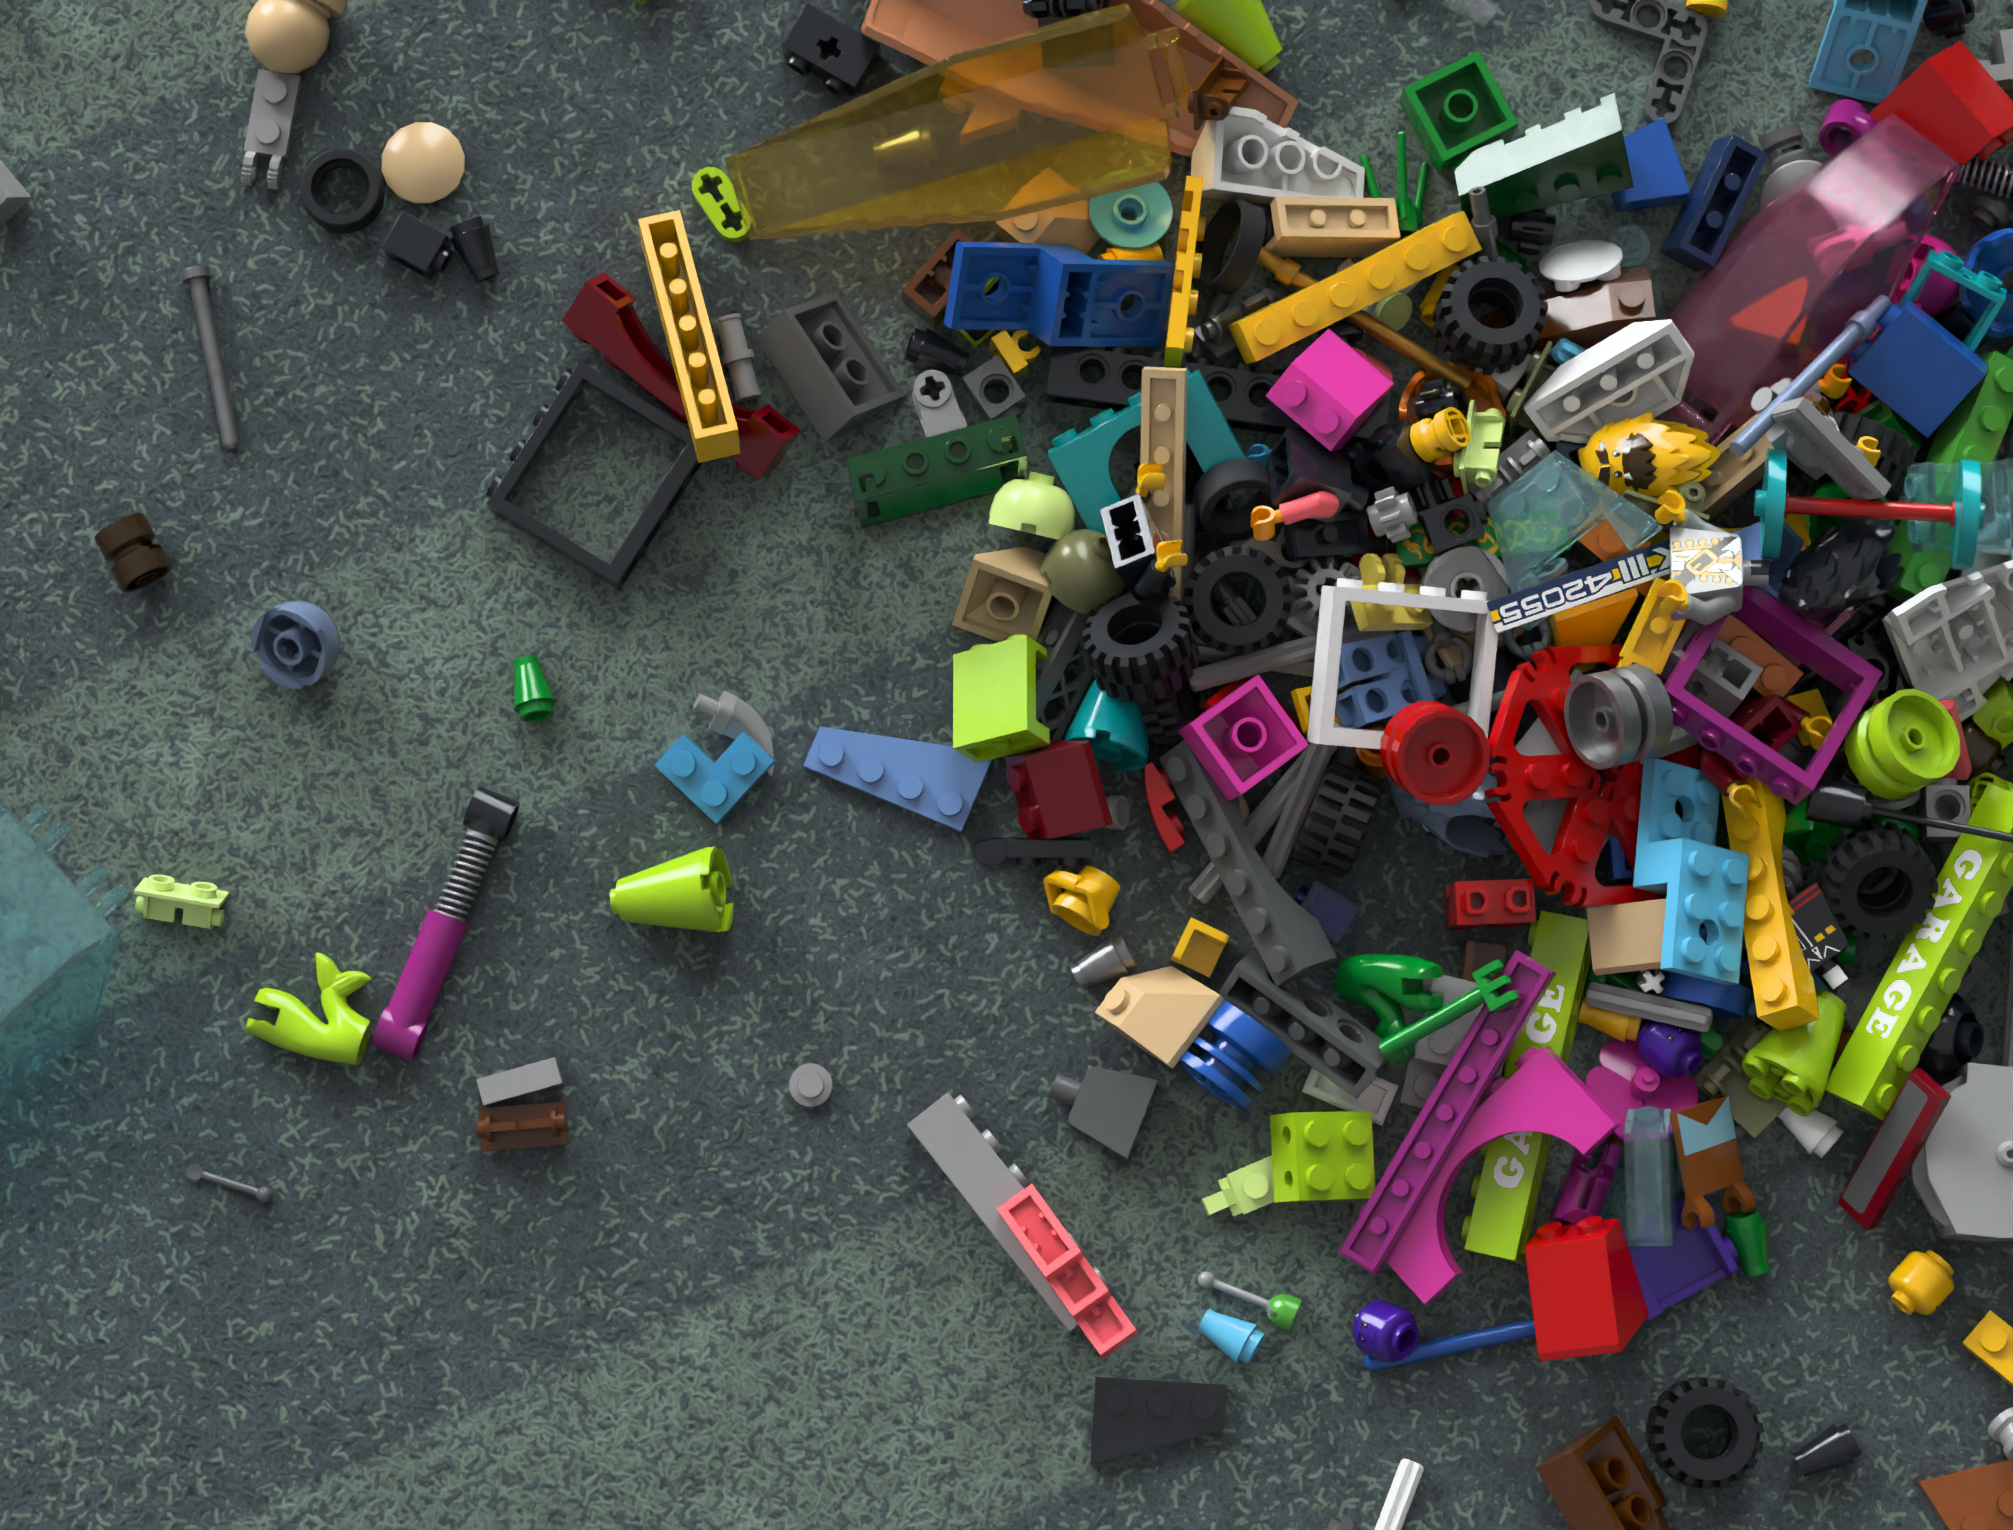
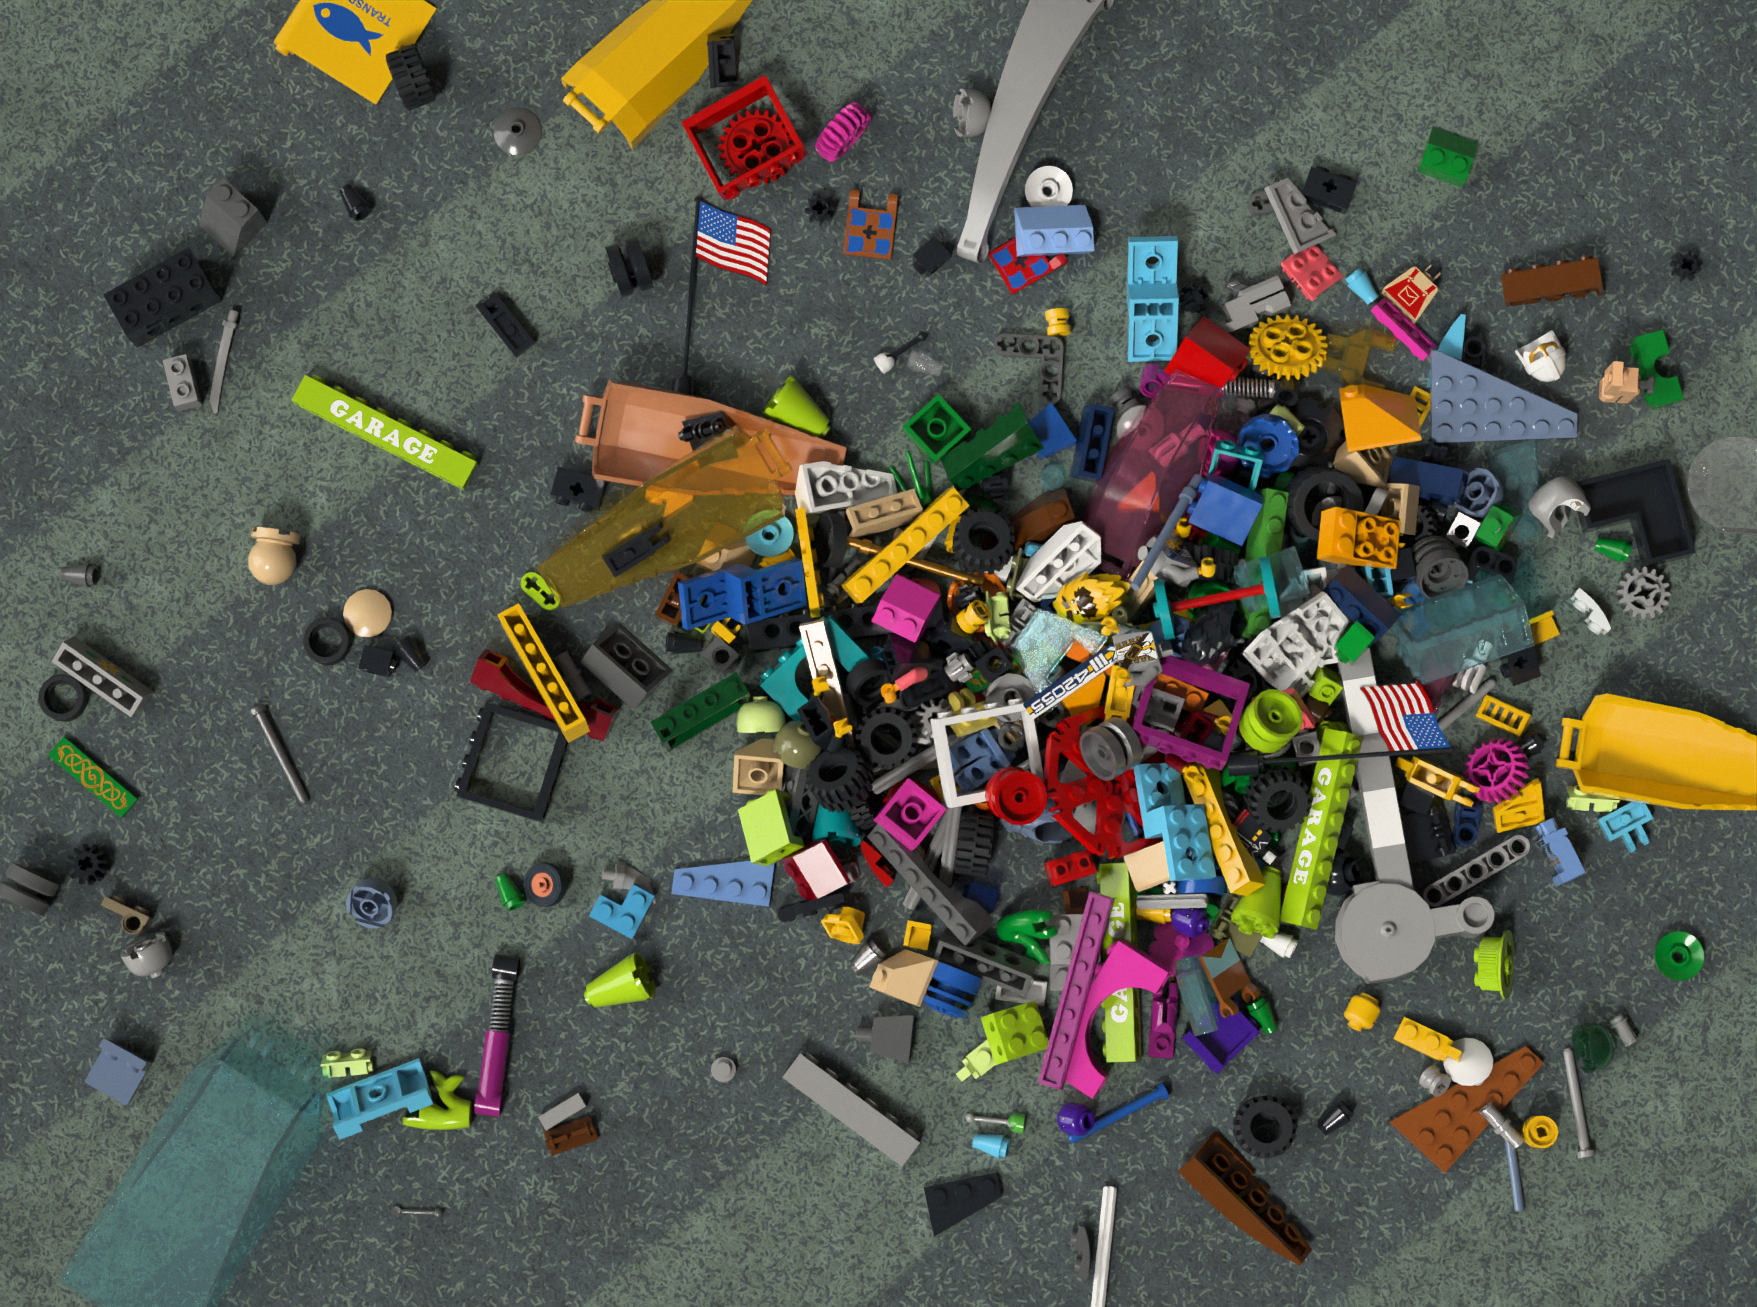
camera: 10 degrees left, 0 degrees up
(131, 548) = (266, 876): dark brown wheel -> none
(254, 966) = (399, 1087): none -> medium azure piece
(270, 125) = (276, 614): light grey hinge -> none
(595, 692) = (545, 884): none -> black wheel
(897, 173) = (634, 550): none -> black hinge
(938, 415) = (694, 680): light grey piece -> none
(1067, 1271) = (892, 1134): coral slope -> none
(1217, 93) = (799, 458): reddish brown hinge -> none
(1394, 310) = (931, 551): yellowish green piece -> none
(1395, 1045) = (1038, 961): green hinge -> none
(1483, 223) = (967, 491): dark grey bar -> none
(1581, 263) = (1027, 496): white dish -> none
(1583, 1289) = (1176, 1066): red slope -> none
(1830, 449) = (1186, 572): light grey plate -> none
(1894, 1149) = (1326, 943): tile -> none

